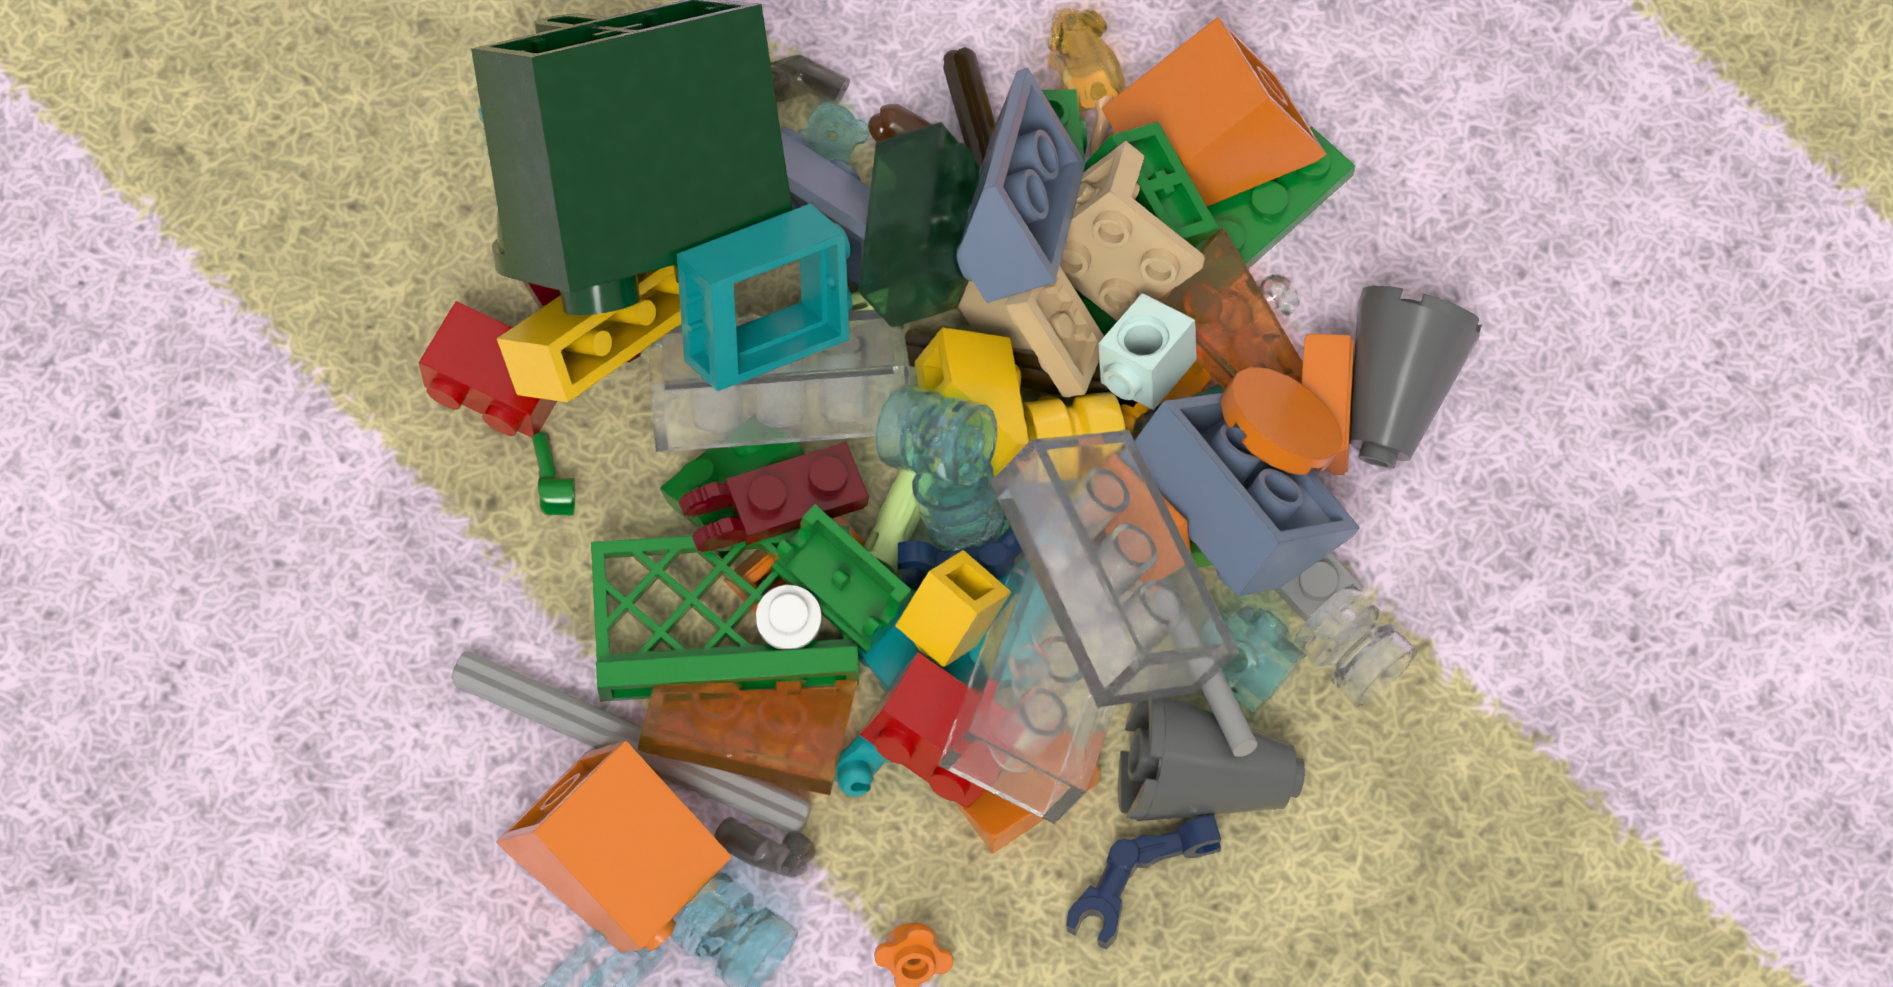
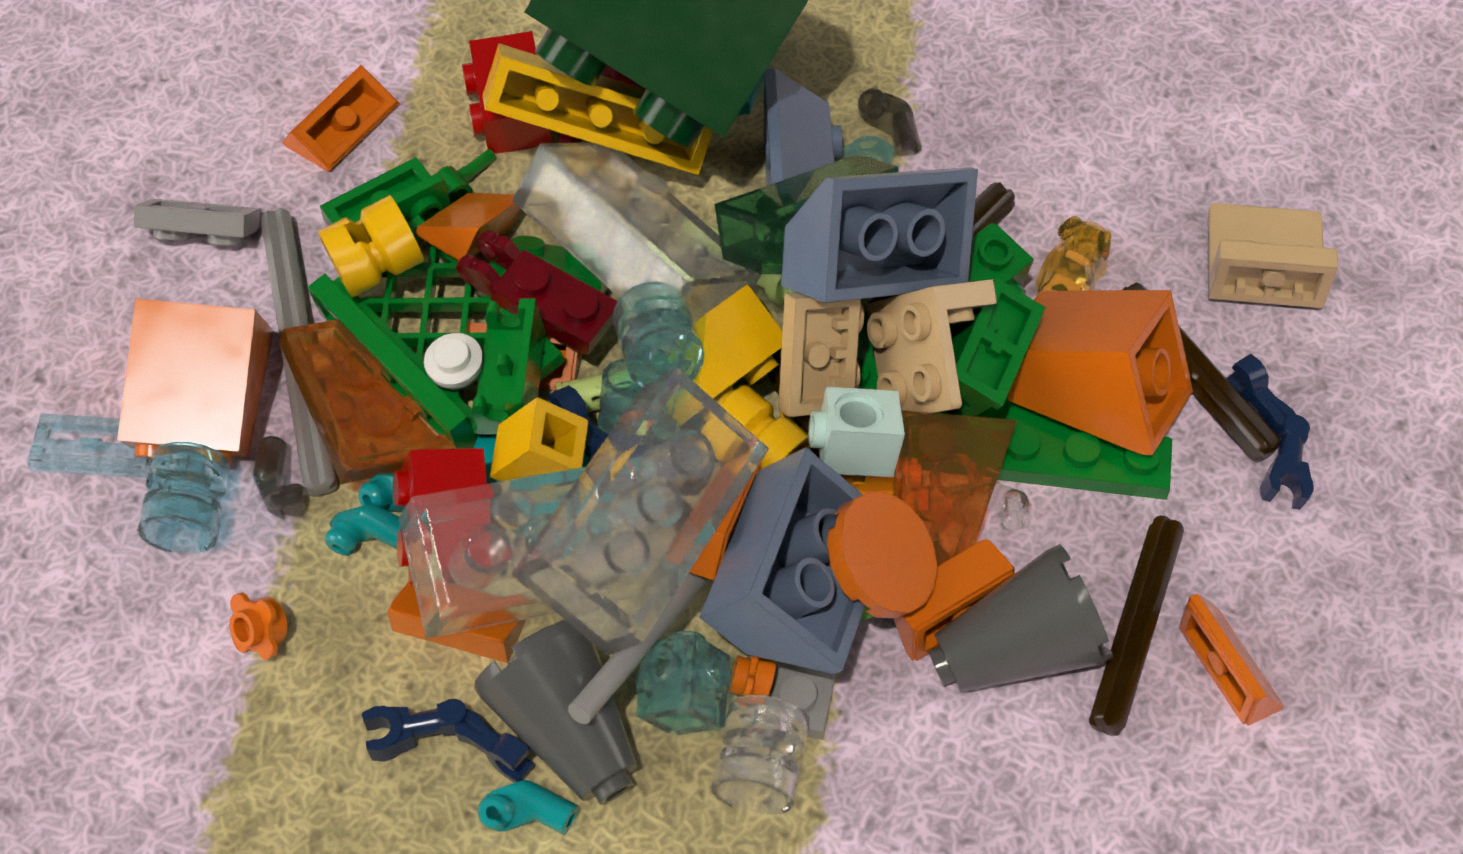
camera: 55 degrees right, 10 degrees down
(381, 538) = (341, 120): none -> orange slope
(409, 734) = (177, 218): none -> light grey plate
(539, 565) = (408, 185): none -> green bracket
(618, 580) = (371, 246): none -> yellow wheel
(633, 502) = (462, 222): none -> orange slope
(707, 301) = (635, 190): teal window -> none
(877, 801) = (362, 525): none -> teal arm
(1247, 853) = (523, 804): none -> teal arm
(1282, 56) = (1226, 402): none -> dark brown axle
(1285, 603) = (752, 676): none -> orange plate
(1372, 34) = (1287, 468): none -> dark blue piece
(1450, 283) = (1136, 626): none -> dark brown axle
(1535, 251) = (1228, 662): none -> orange slope

